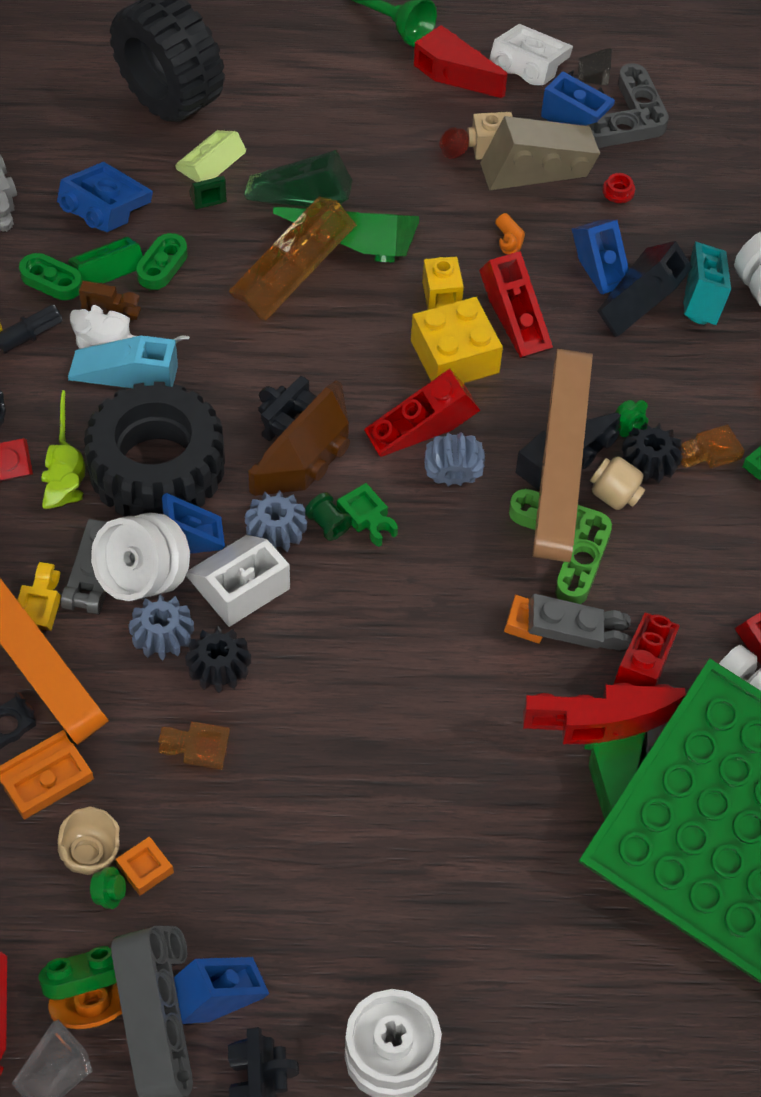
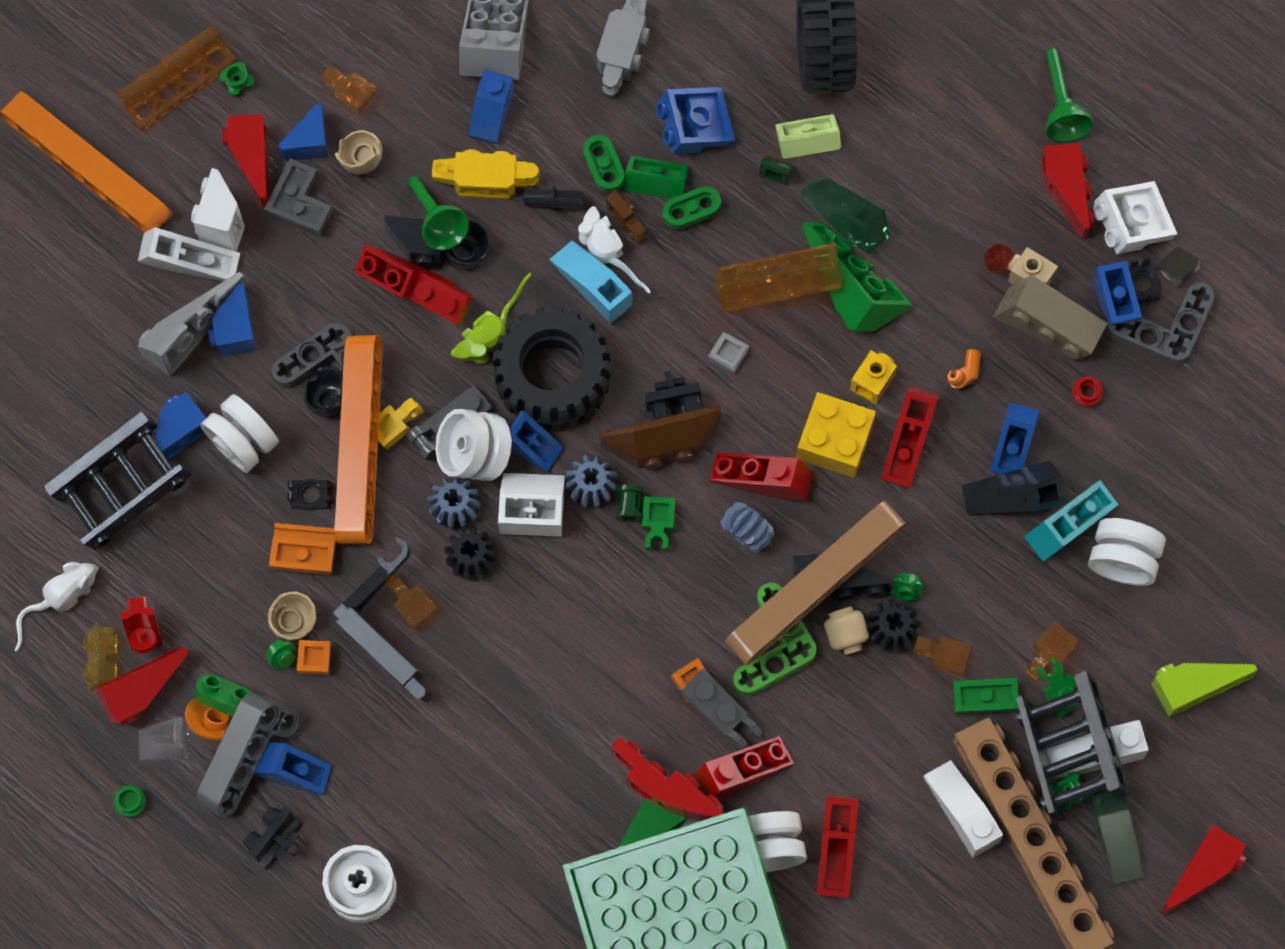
camera: 45 degrees right, 15 degrees up
(194, 801) = (372, 639): none -> hinge
(299, 348) = (728, 352): none -> light grey tile

